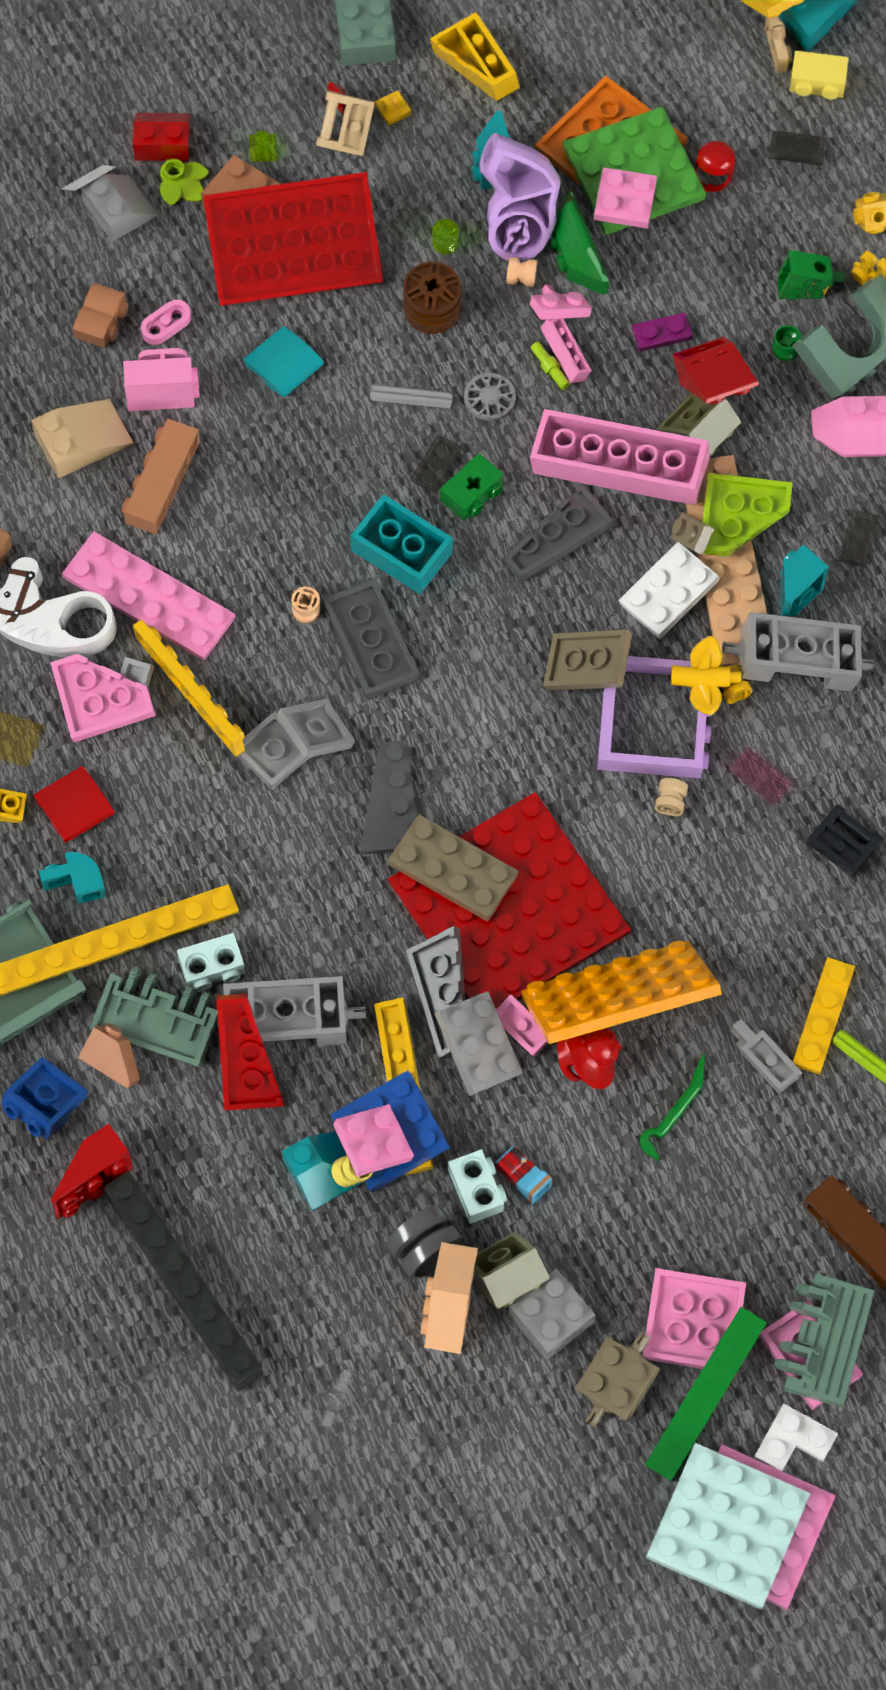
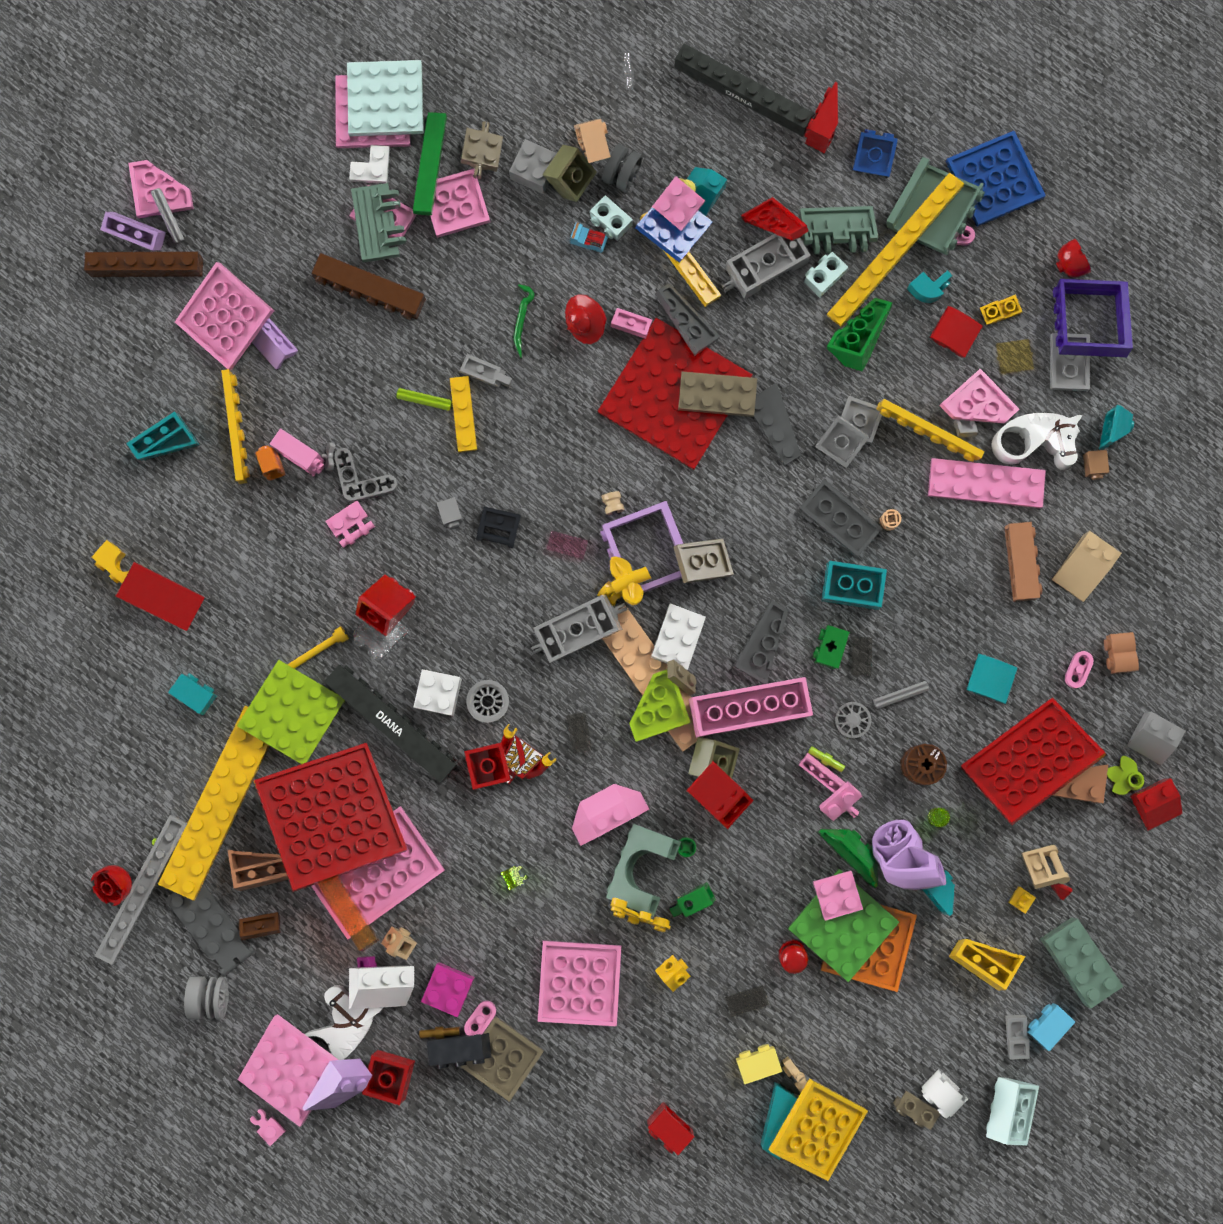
camera: 155 degrees right, 15 degrees up
(88, 177) = (1184, 744): white sticker -> none
(111, 1054) = (850, 192): nougat slope -> none
(161, 380) = (1059, 620): bright pink brick -> none
(215, 856) = (858, 338): none -> green wedge
(262, 147) = (1088, 827): clear neon green tile -> none
(478, 1043) = (650, 295): light grey plate -> none
(522, 272) = (878, 815): light nougat wheel -> none
(619, 991) = (582, 356): light orange plate -> none
(661, 332) = (768, 818): magenta plate -> none
(801, 580) = (601, 675): teal slope -> none

